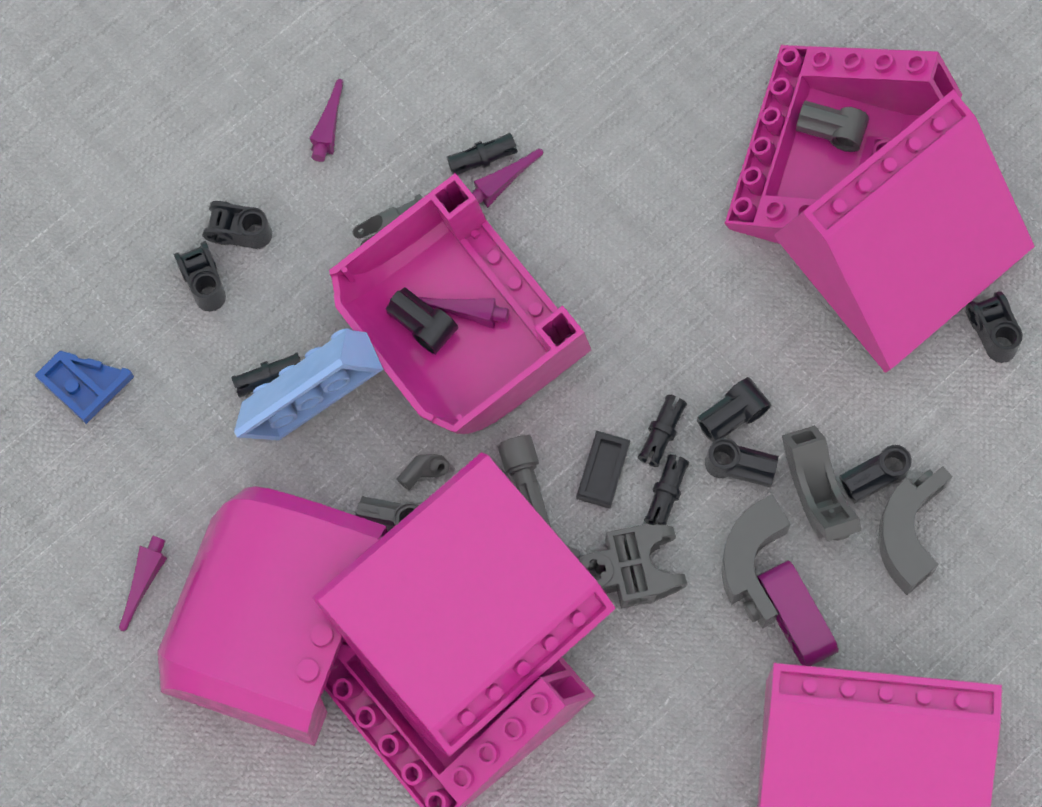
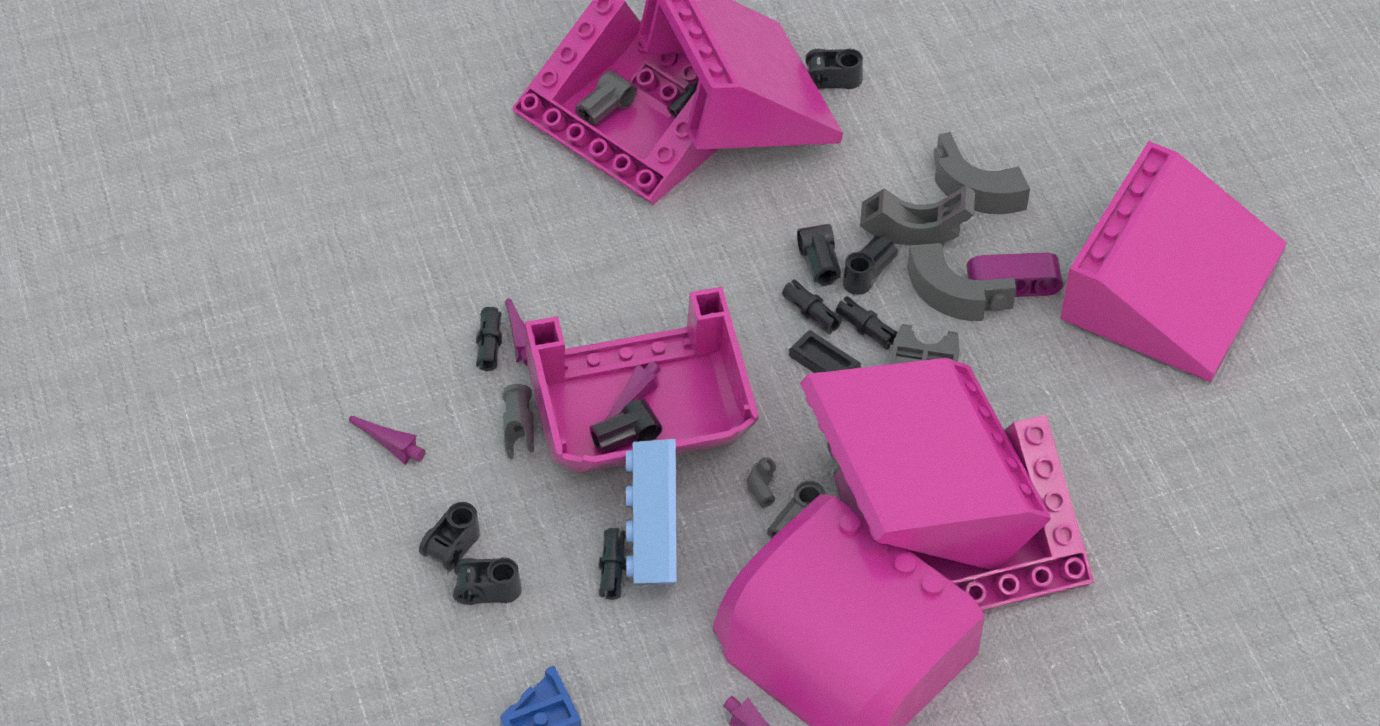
camera: 70 degrees left, 20 degrees down
(520, 460) = (789, 407): dark grey piece -> none
(874, 474) = (919, 177): black piece -> none

